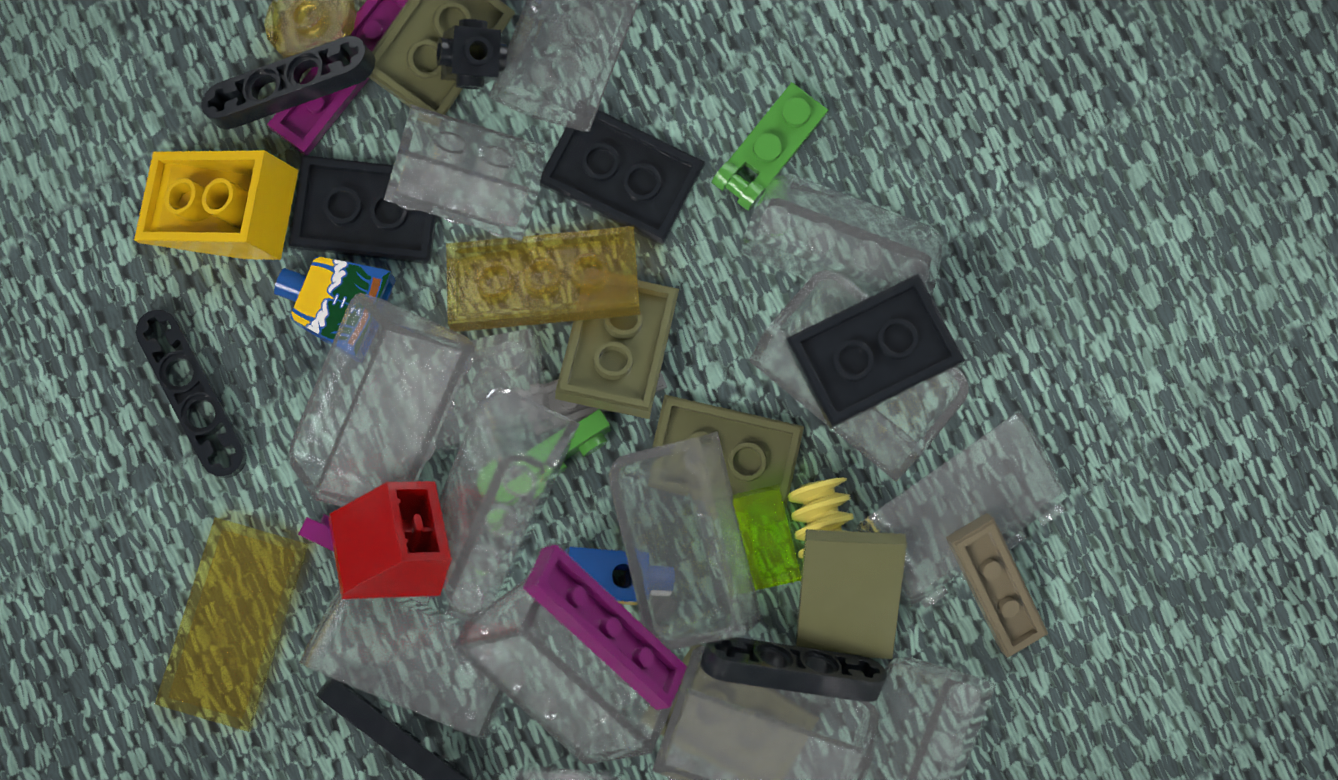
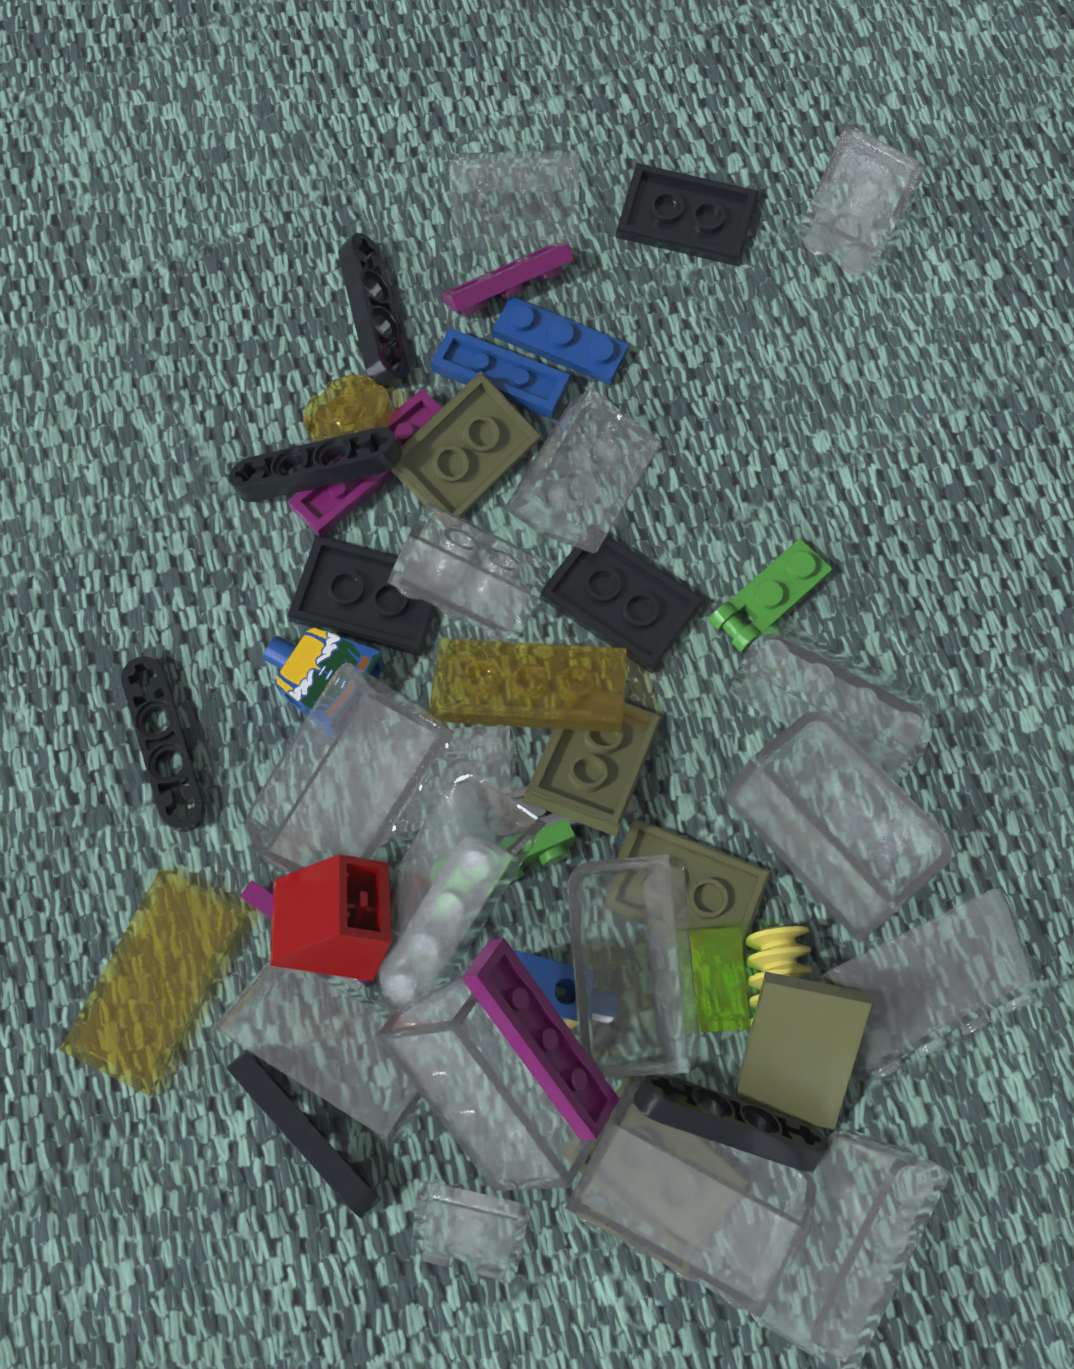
camera: 10 degrees right, 10 degrees down
(218, 203) = (227, 566): yellow slope -> none
(455, 57) = (483, 470): black brick -> none
(874, 351) = (860, 797): black tile -> none
(997, 585) = (956, 1067): dark tan tile -> none

